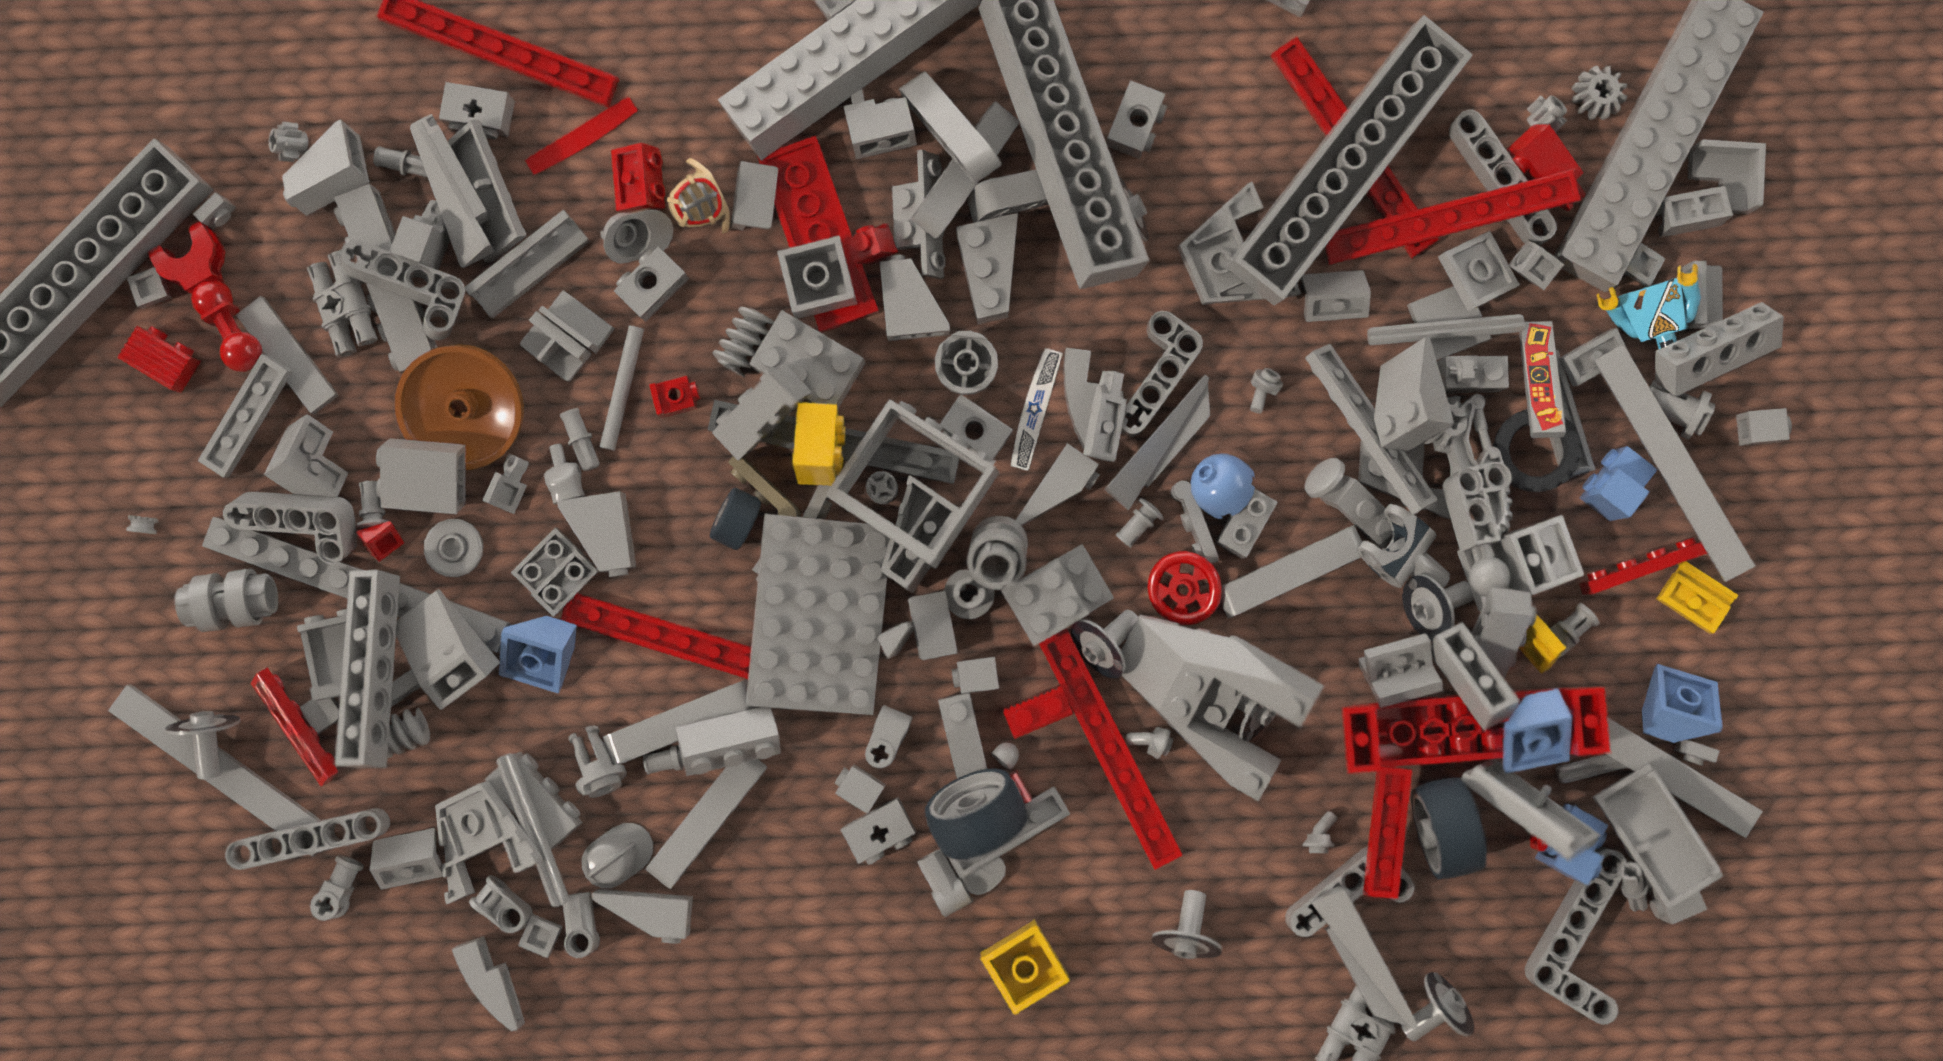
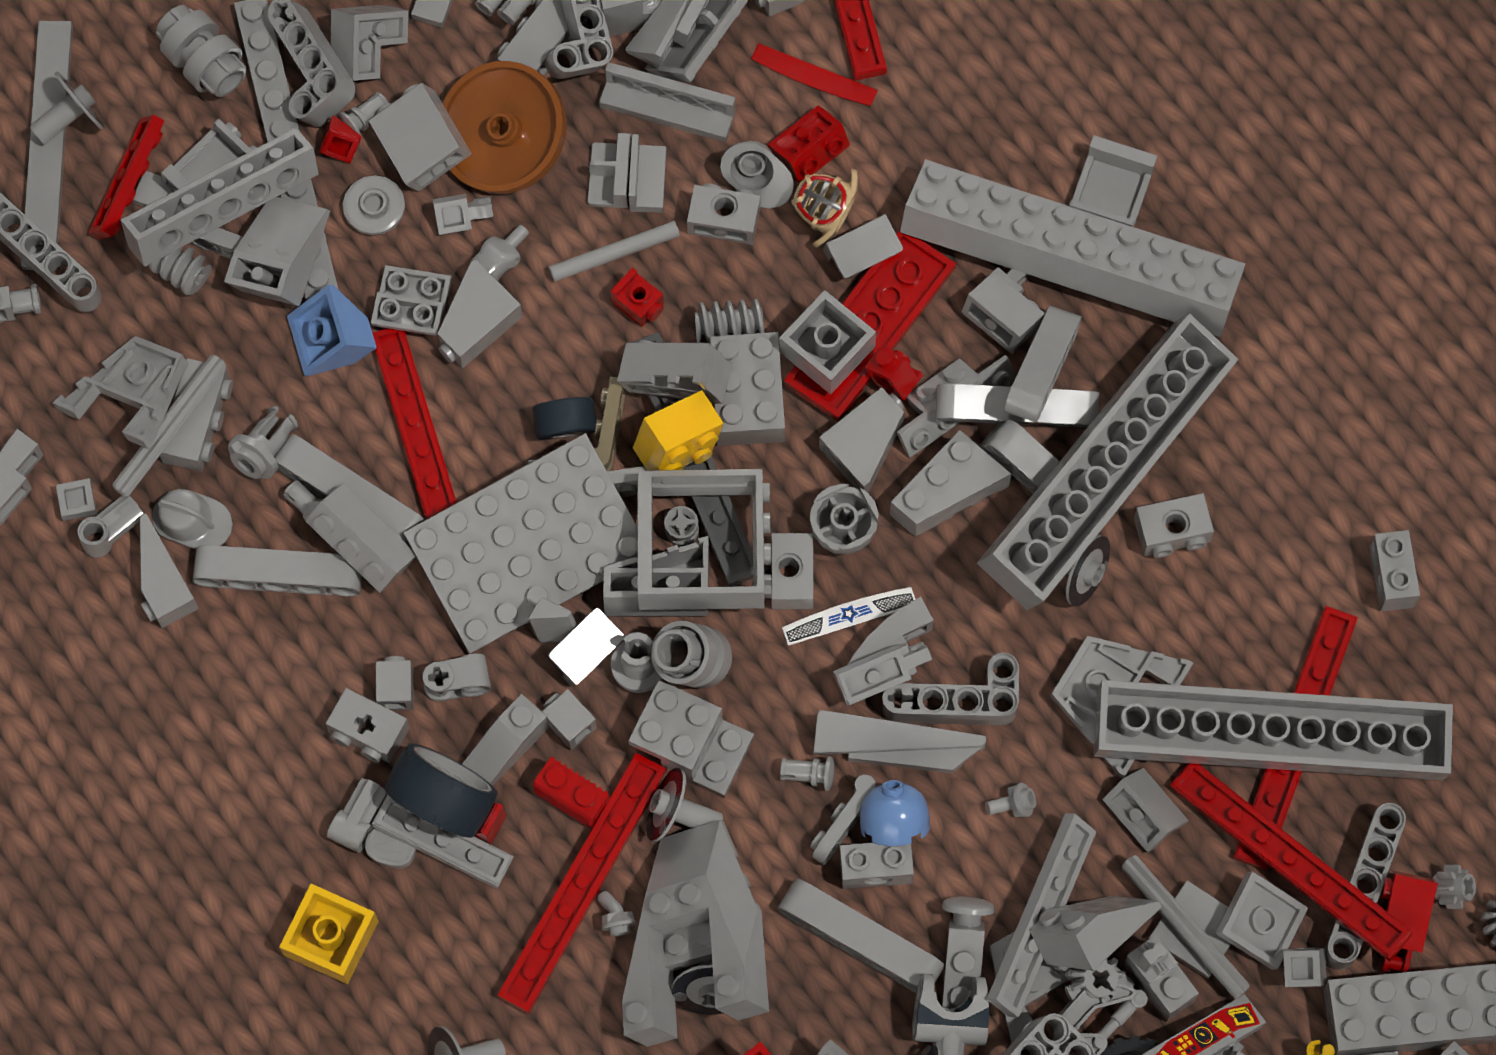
camera: 55 degrees right, 15 degrees down
(405, 859) = (69, 344): light grey panel -> none
(496, 902) = (82, 444): light grey piece -> none
(580, 439) = (543, 246): light grey axle -> none
(1006, 755) = (513, 794): light grey hinge -> none
(1063, 481) = (796, 677): light grey slope -> none
(1202, 570) = (758, 831): red plate -> none

